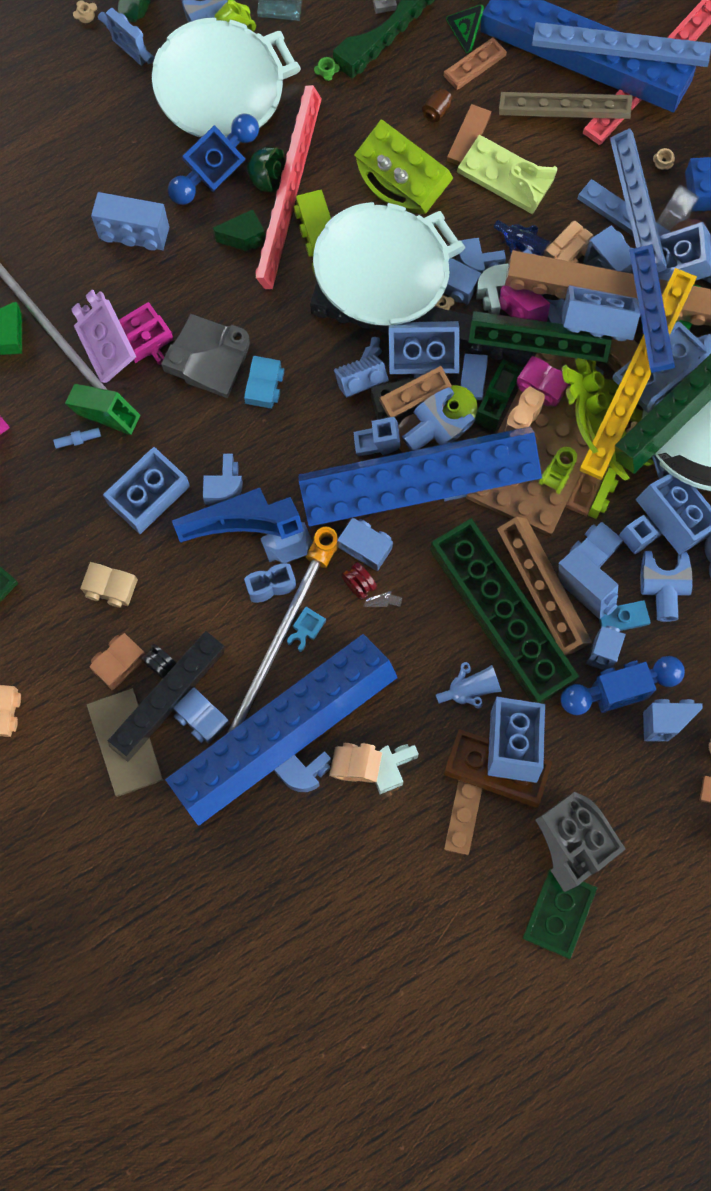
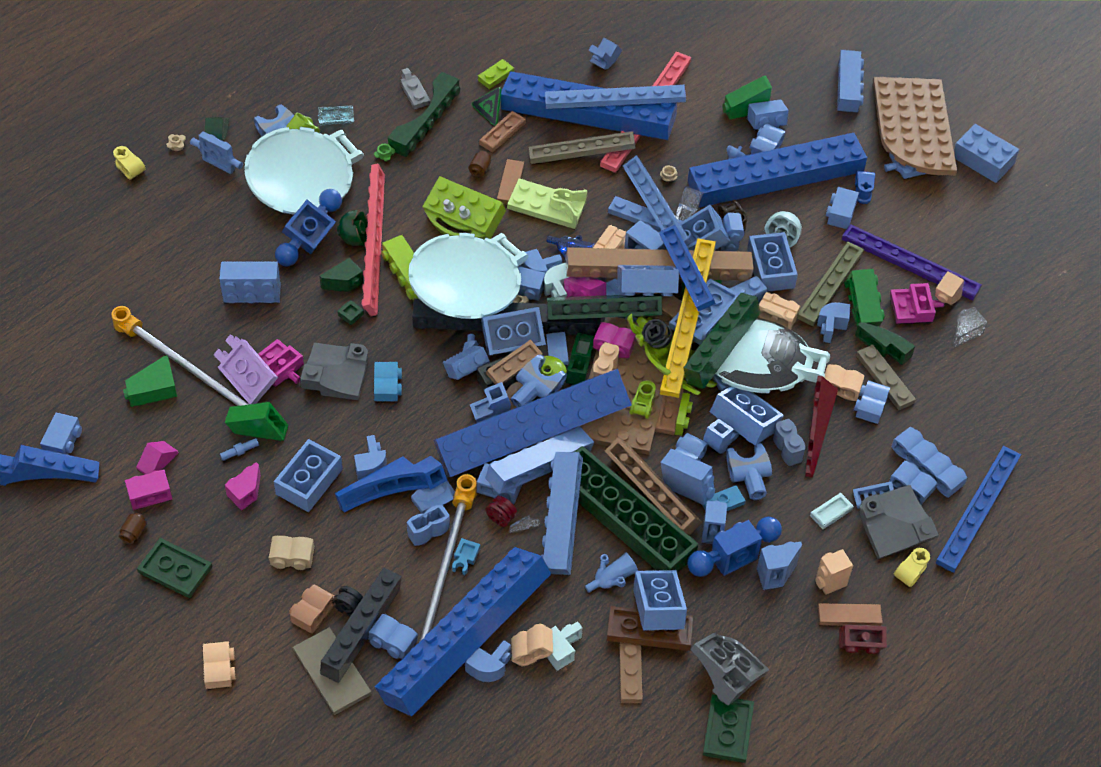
camera: 15 degrees left, 20 degrees down
(22, 30) = (128, 162): none -> light yellow piece
(74, 489) = (244, 487): none -> dark pink slope
(241, 281) = (350, 312): none -> dark green plate
(413, 527) = (534, 461): none -> brick
(428, 602) = (562, 512): none -> medium blue brick
(594, 388) = (656, 334): none -> black wheel

